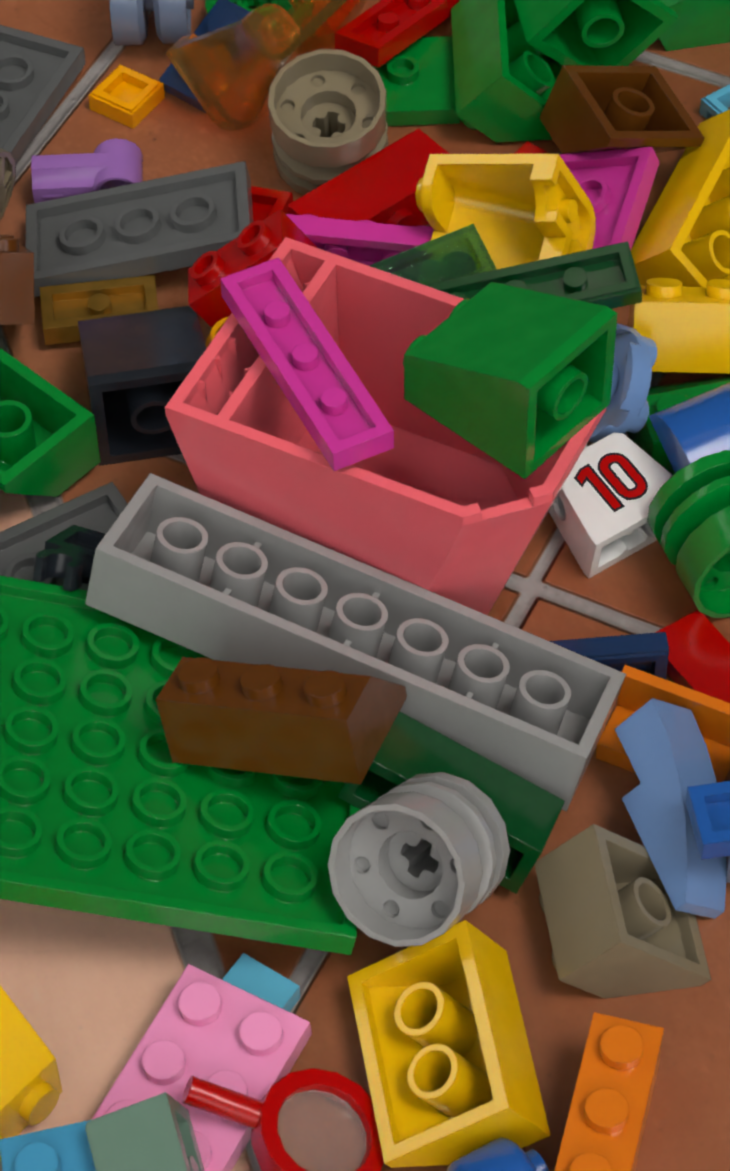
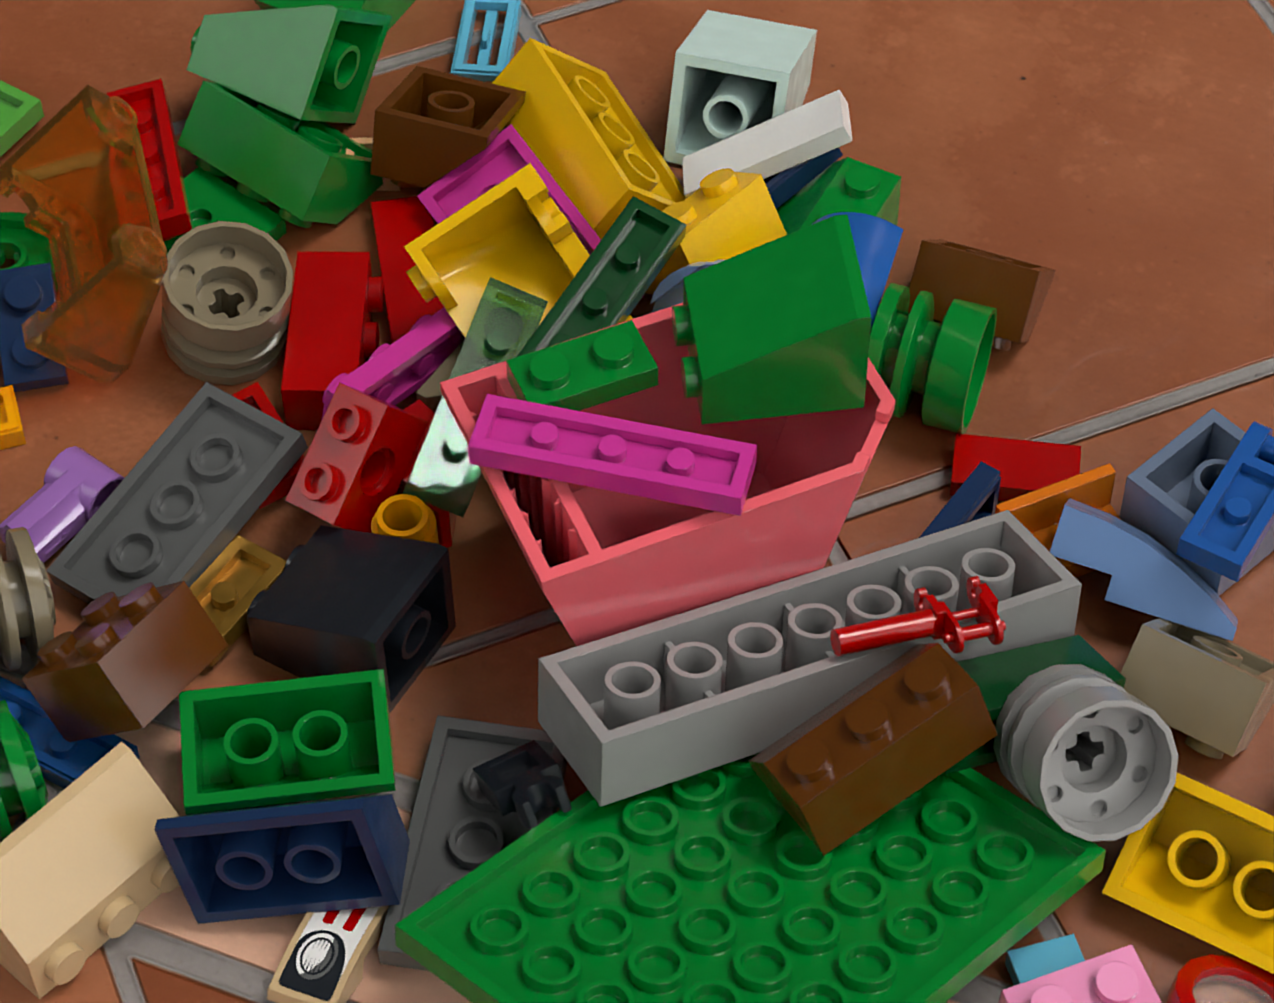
camera: 50 degrees left, 0 degrees up
(372, 300) = (585, 369): none -> green plate
(418, 674) = (928, 620): none -> red piece

